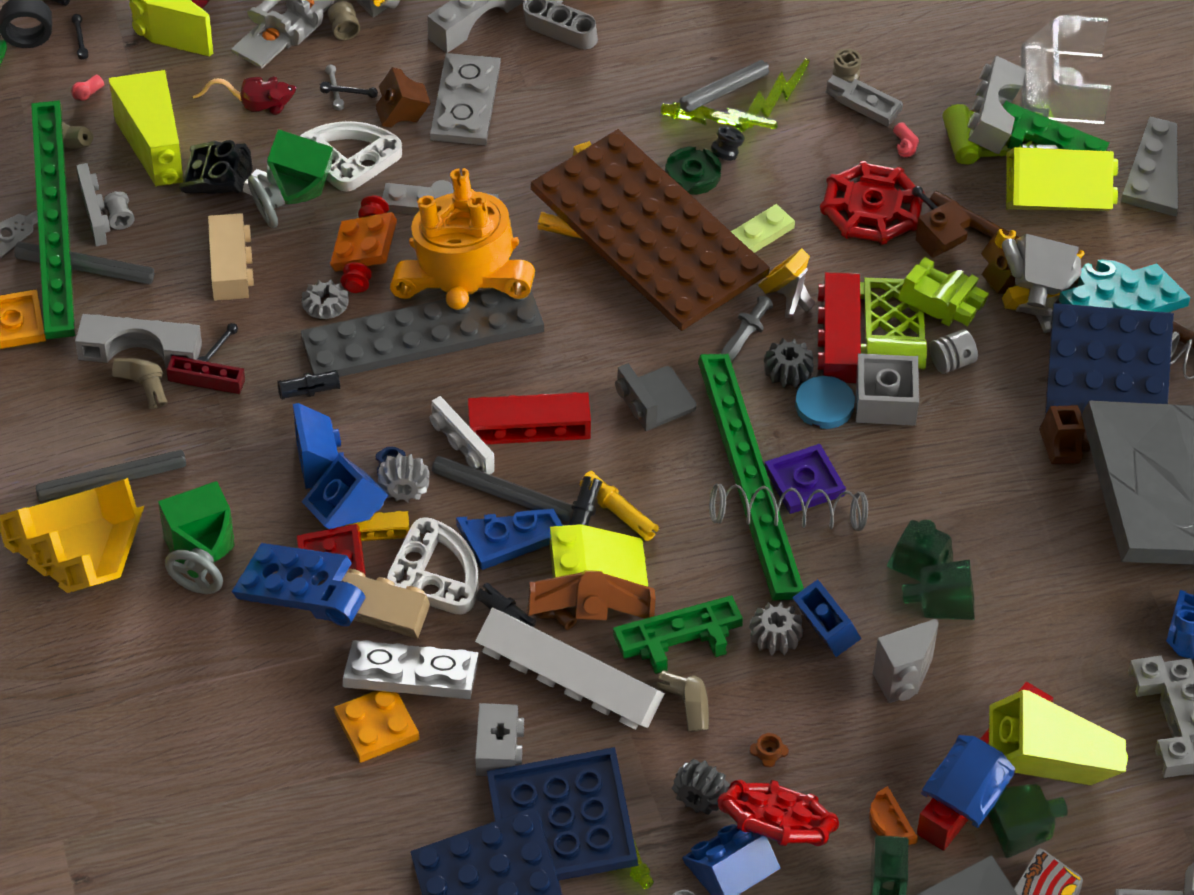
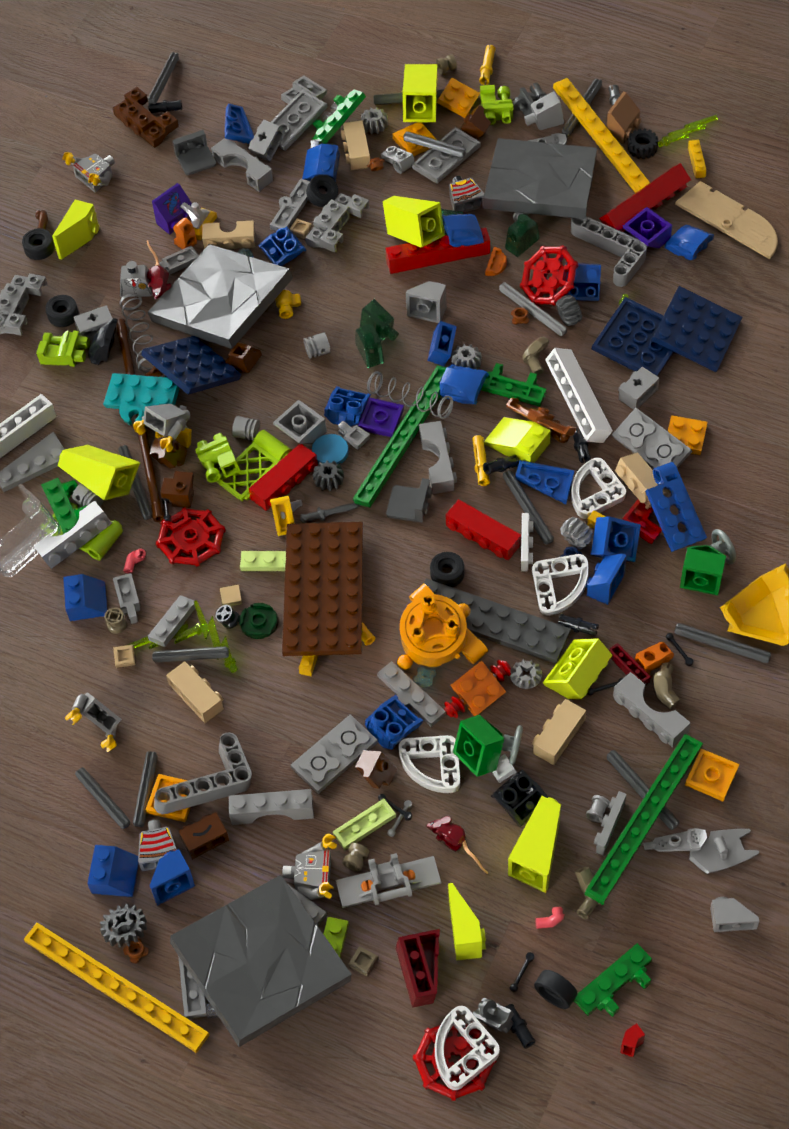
camera: 135 degrees left, 5 degrees up
(138, 434) = (688, 661): none -> black hinge
(182, 399) = (654, 656): none -> orange leg
(265, 333) = (578, 668): none -> neon yellow slope
(364, 54) = (364, 824): none -> yellowish green plate
(403, 411) = (546, 578): none -> white beam
(427, 154) = (392, 722): none -> blue slope
(528, 334) = (447, 559): none -> black tyre
(645, 451) = (433, 440): none -> light grey arch
(677, 57) = (195, 691): none -> tan brick
(741, 580) = (462, 383): none -> blue slope
(753, 174) = (231, 595): none -> tan tile
(784, 775) = (533, 309): none -> light grey axle
(785, 107) = (172, 621): none -> light grey plate
(797, 48) = (124, 656): none -> tan tile
(810, 432) = (354, 436): none -> light grey plate
(865, 463) = (345, 406): none -> blue slope
(909, 68) = (84, 597): none -> blue slope
(991, 513) = (317, 345): none -> light grey piece
(1008, 217) = (138, 488): none -> dark grey axle
(1105, 555) = (285, 302): none -> yellow piece

